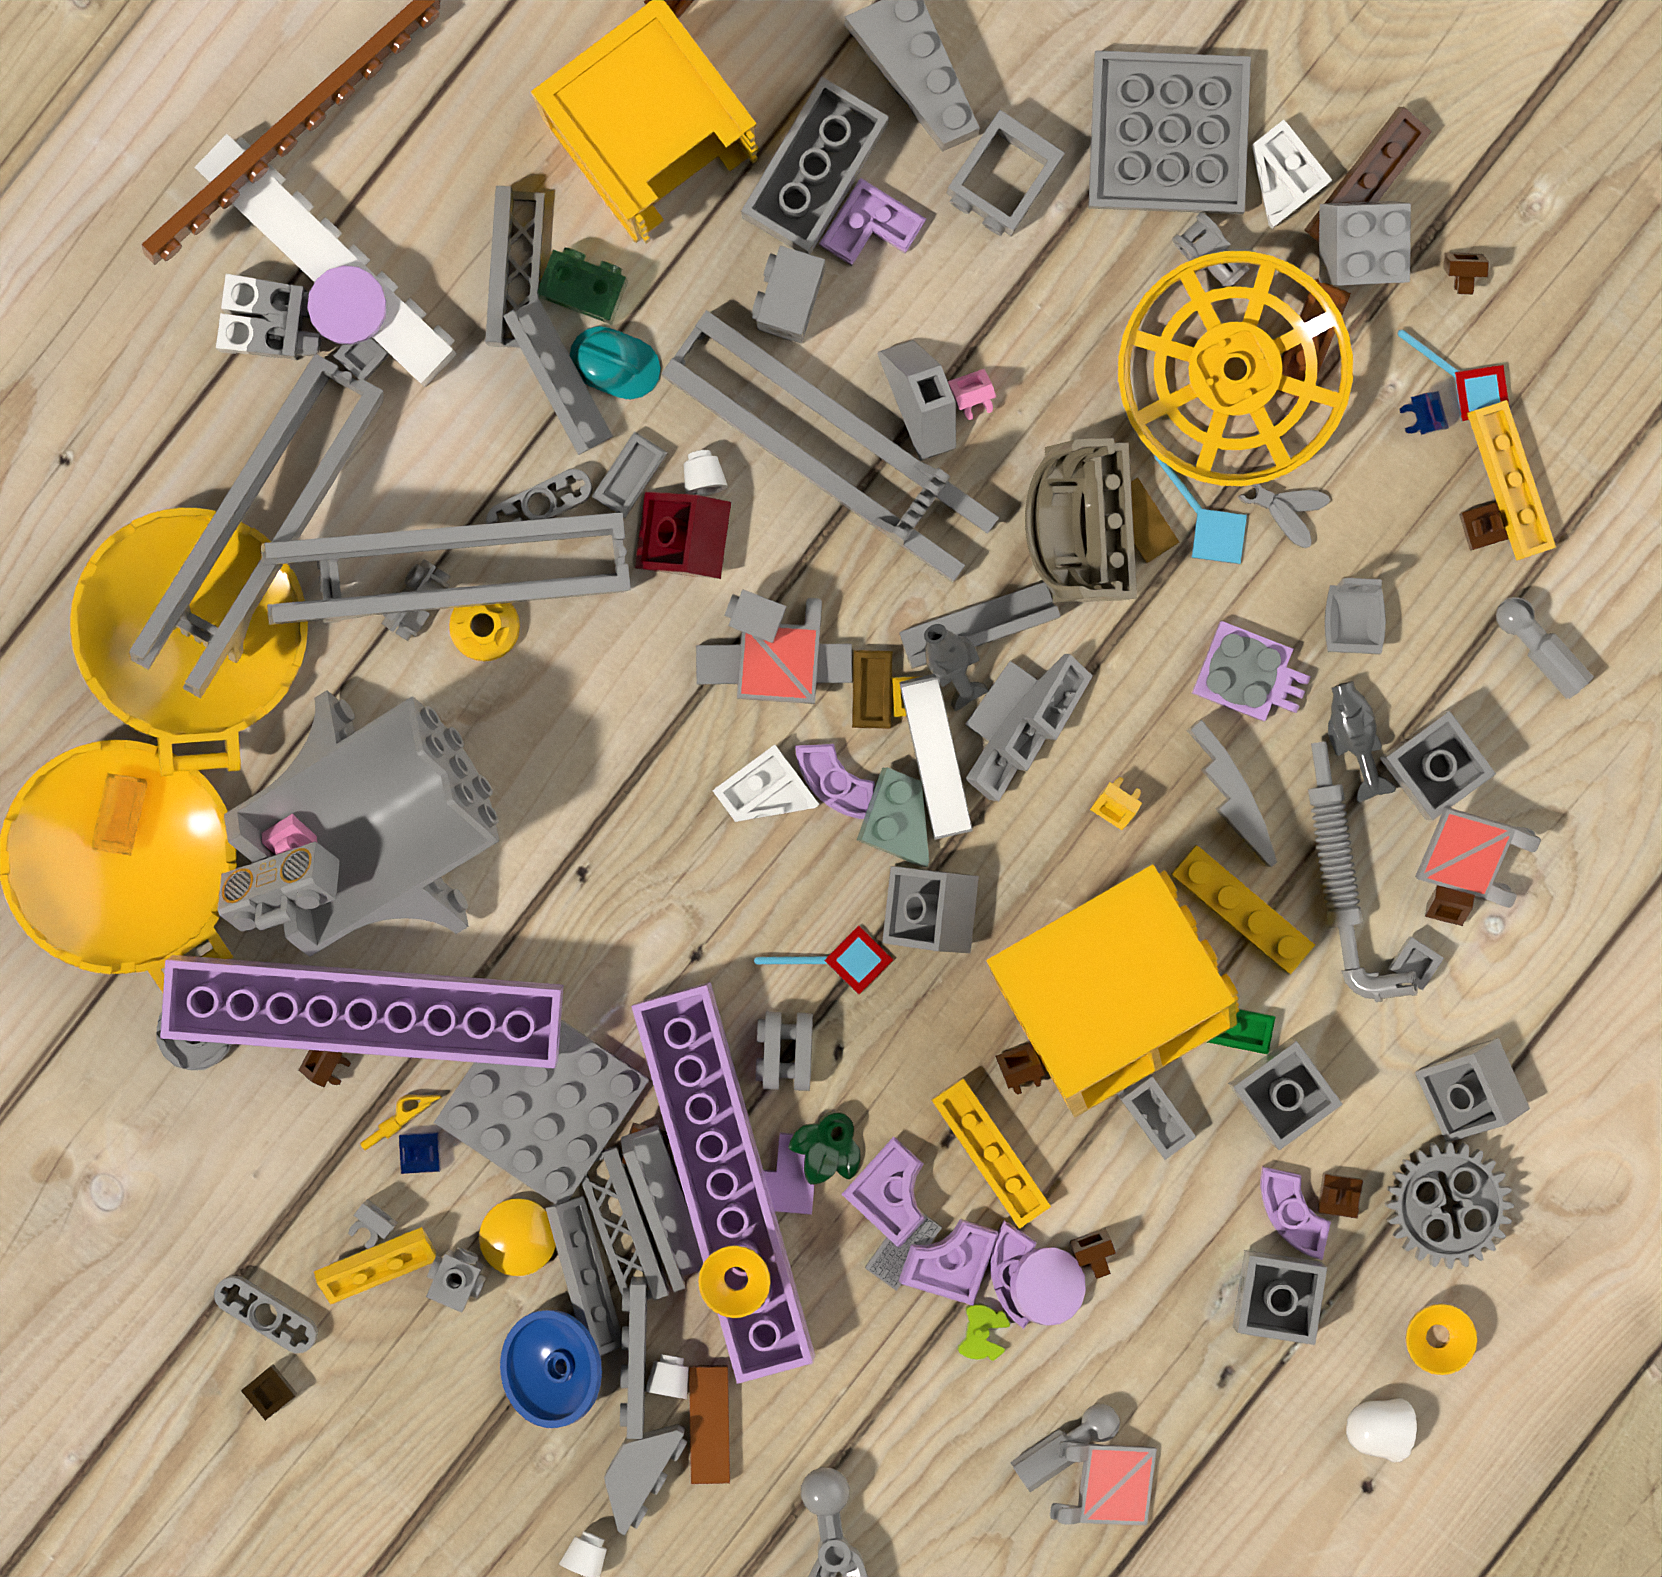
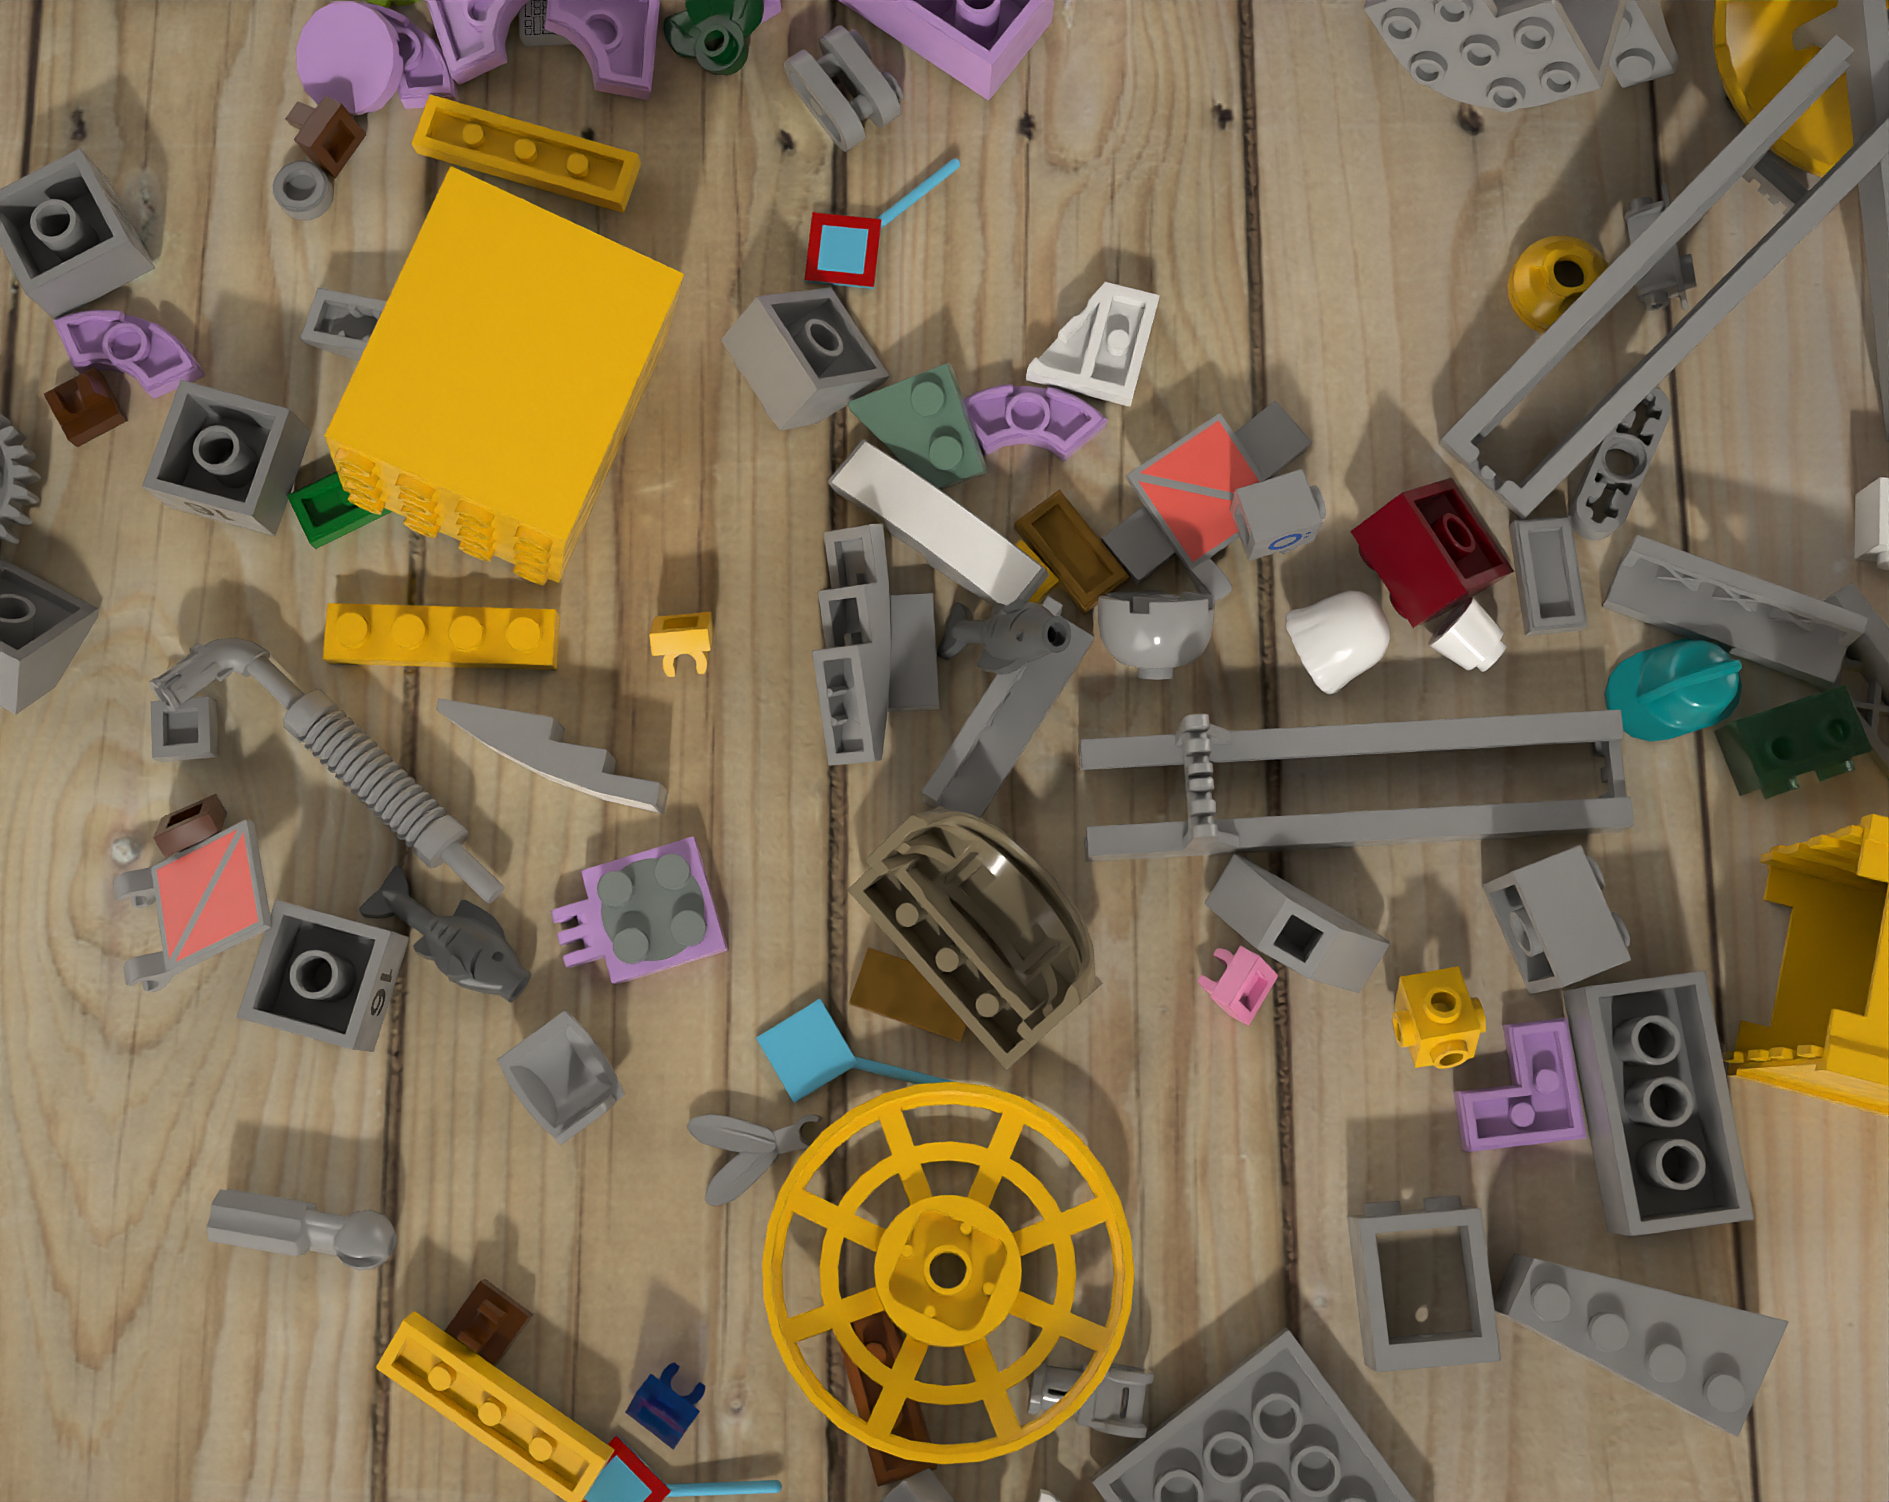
camera: 145 degrees right, 10 degrees down
(773, 529) = (1339, 638): none -> white hair
(866, 609) = (1156, 629): none -> light grey cylinder
(889, 294) = (1437, 1018): none -> yellow brick
(1129, 1232) = (303, 190): none -> light grey tile

